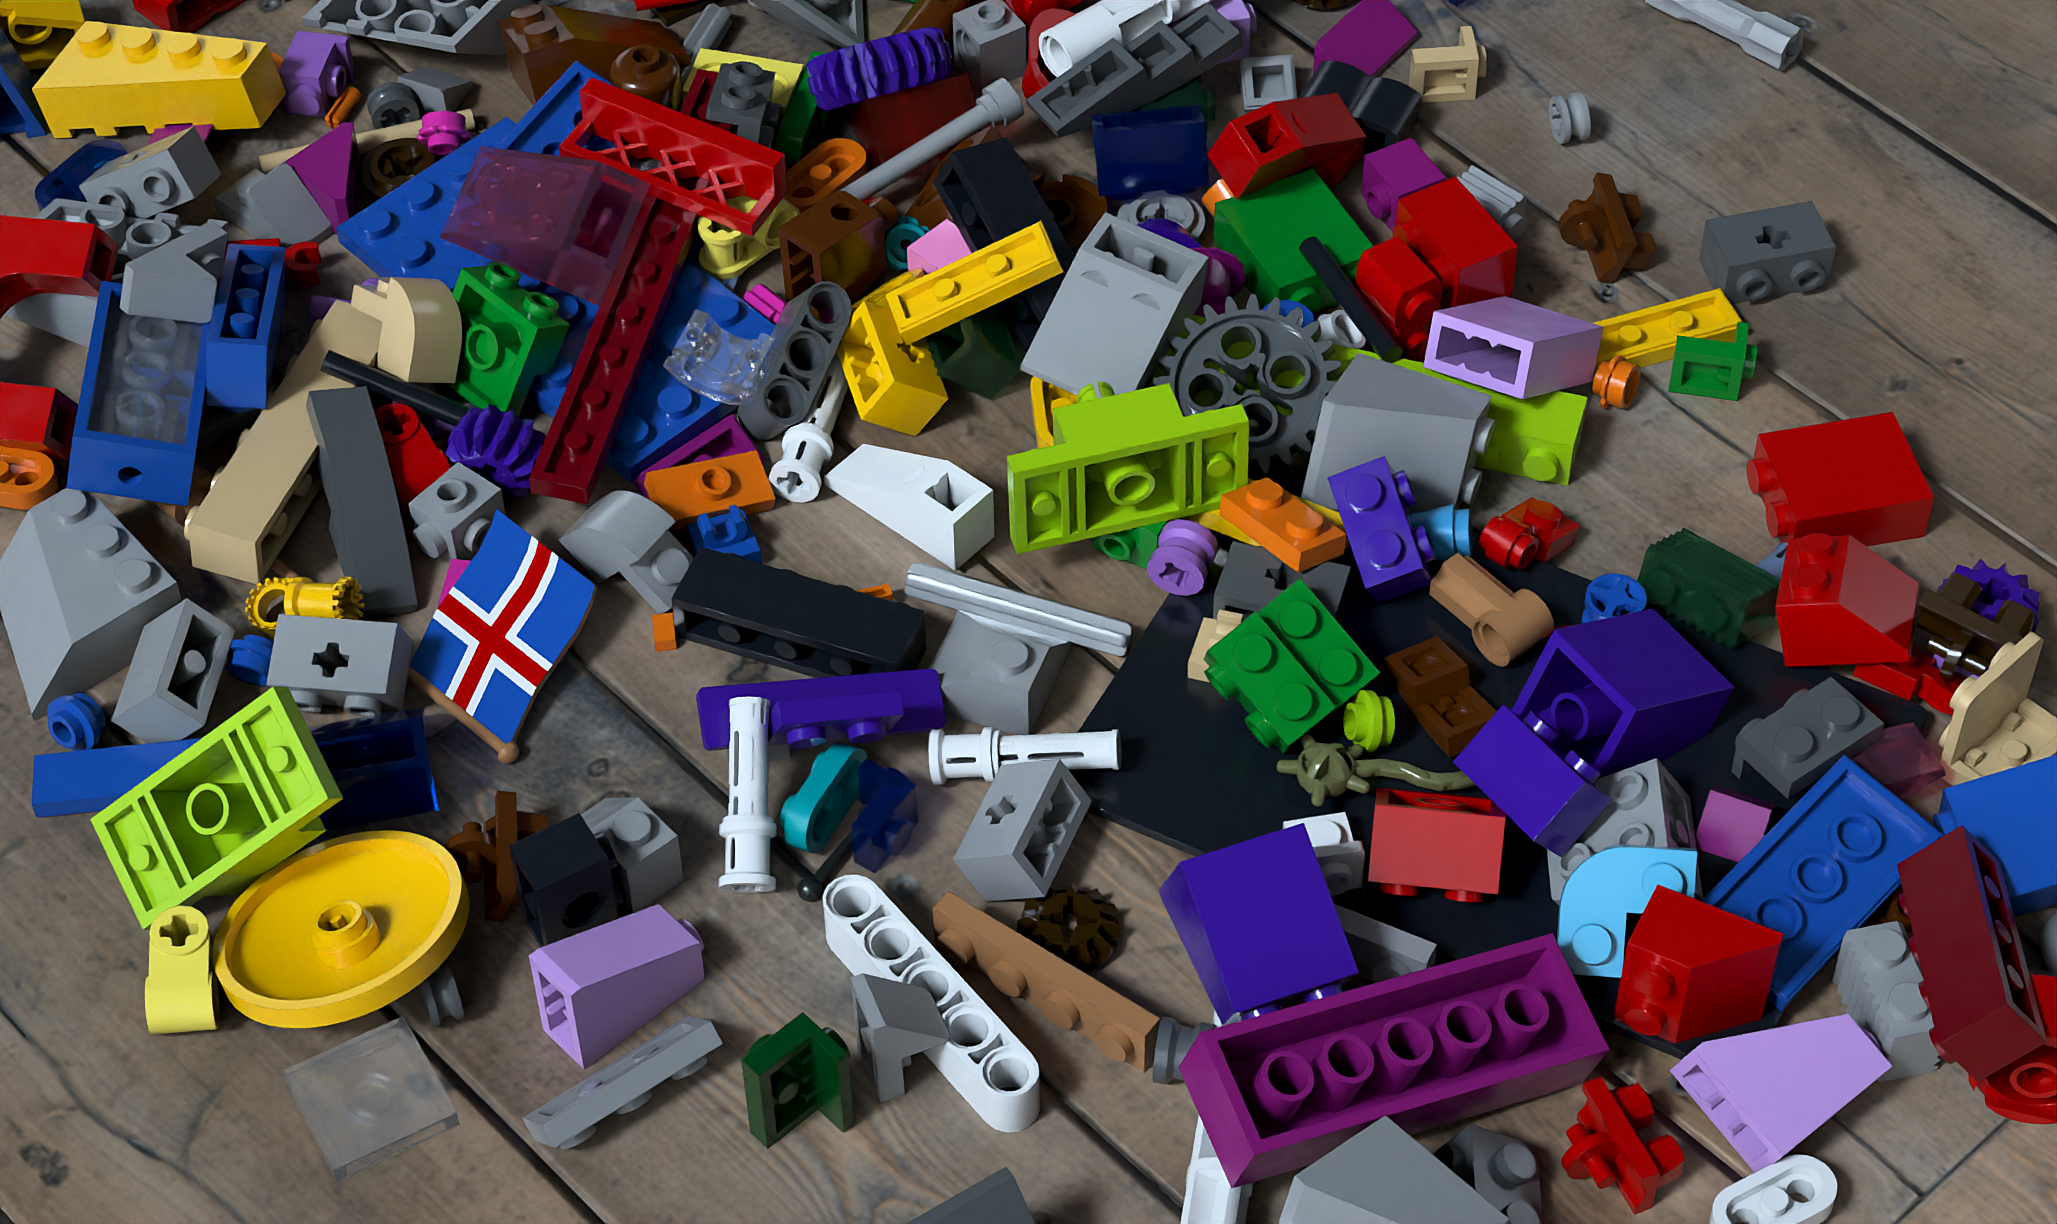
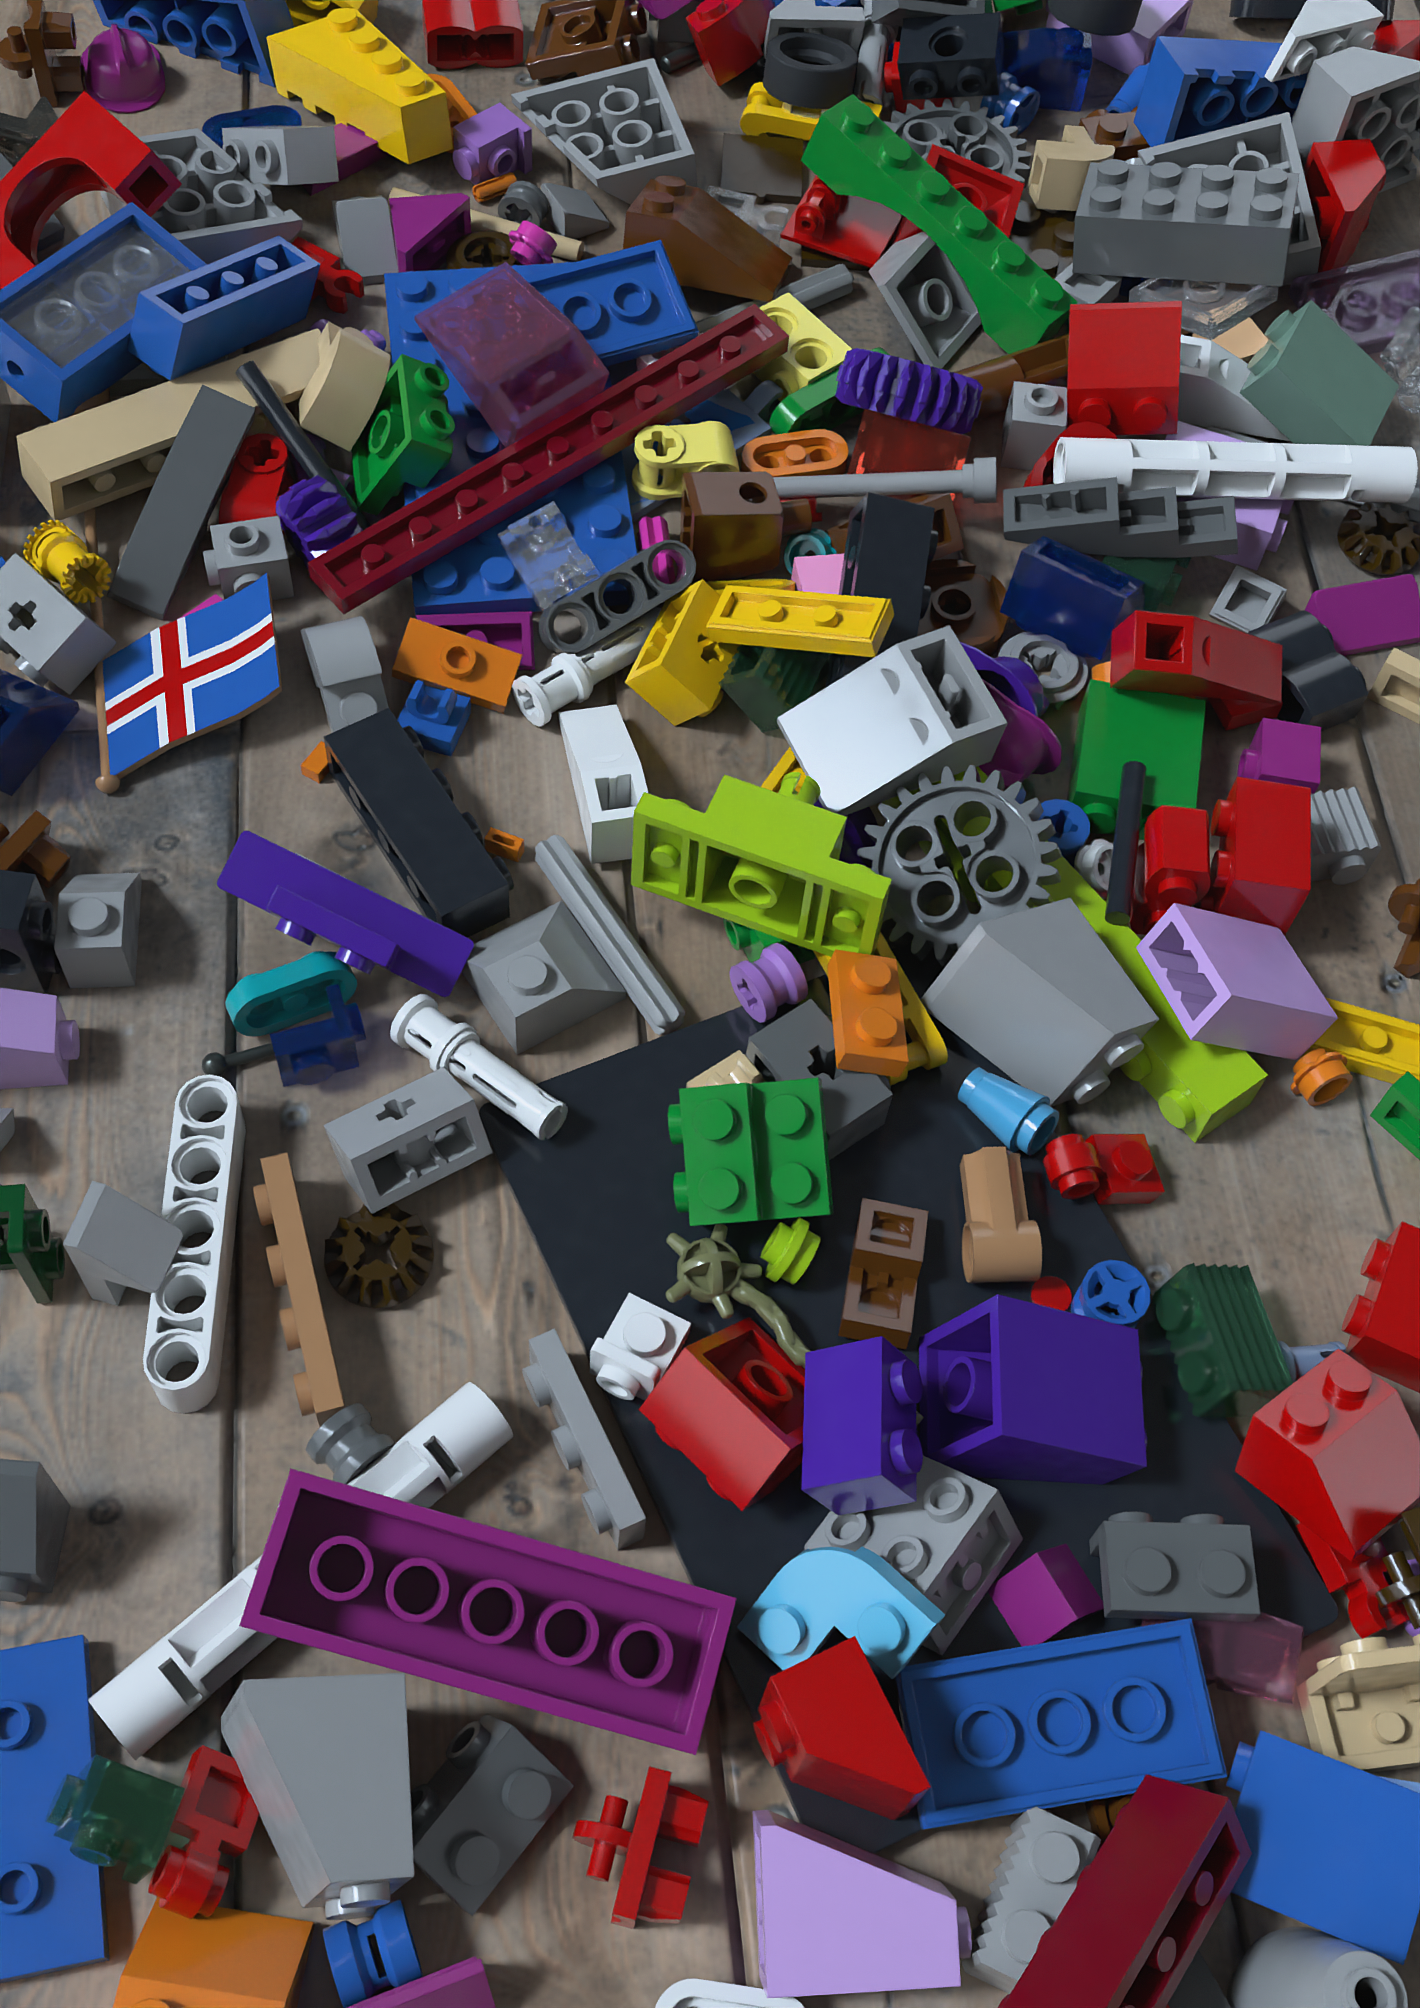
camera: 30 degrees right, 10 degrees up
(177, 277) = (178, 226): light grey slope -> none
(649, 74) = (713, 289): reddish brown head -> none
(685, 149) = (671, 353): red fence -> none
(745, 99) = (760, 363): dark grey bracket -> none
(748, 823) = (197, 976): white pin -> none
(1259, 924) = (478, 1394): dark purple slope -> none
(1381, 530) = (949, 1077): dark purple brick -> none

